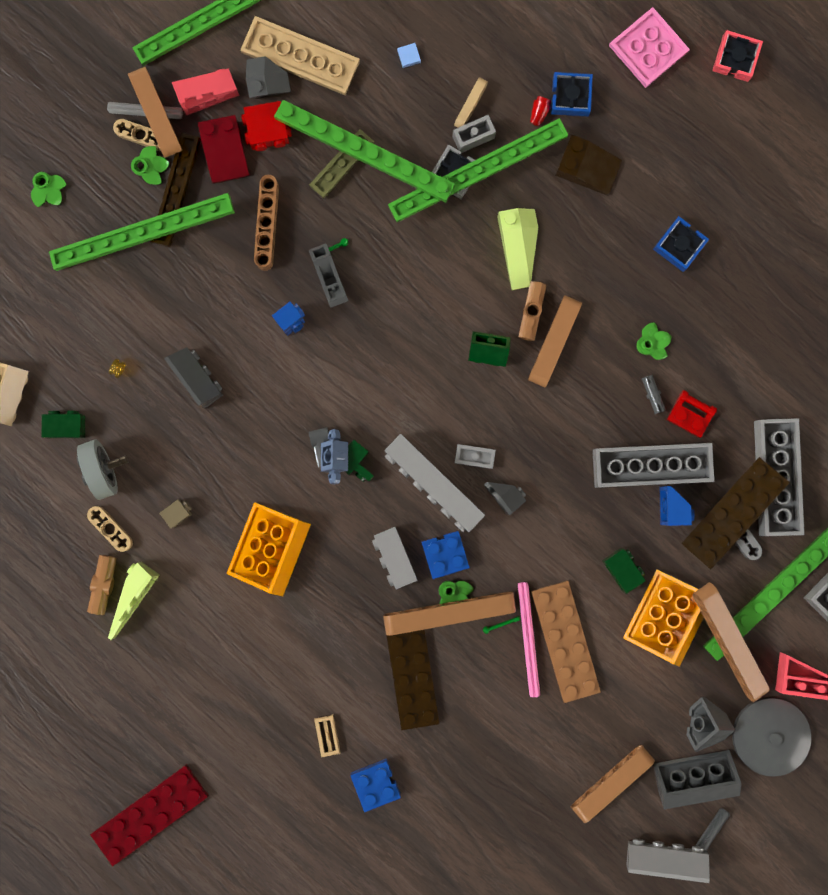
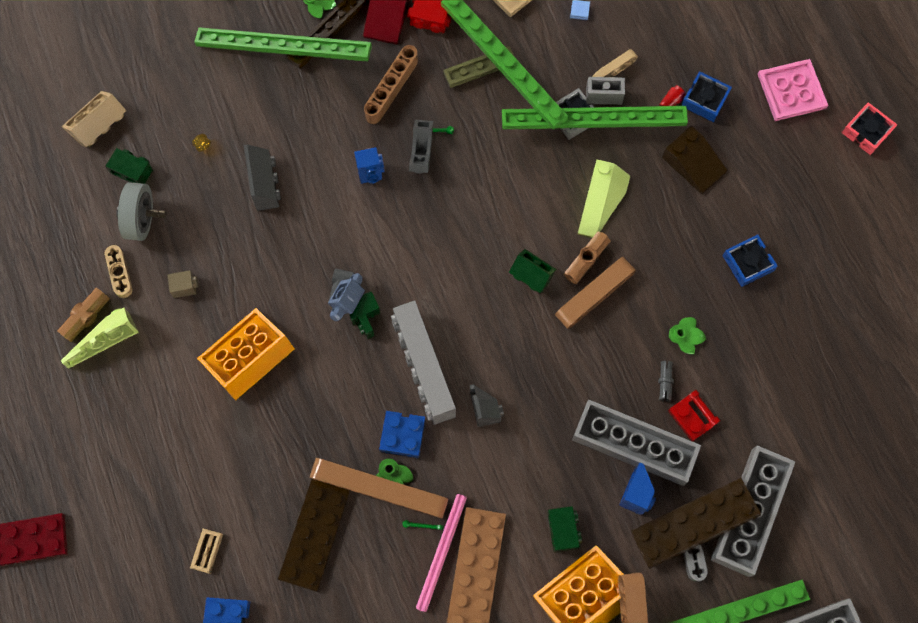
camera: 30 degrees right, 15 degrees down
(394, 558) = (354, 414): light grey brick -> none
(475, 456) = (473, 359): light grey plate -> none

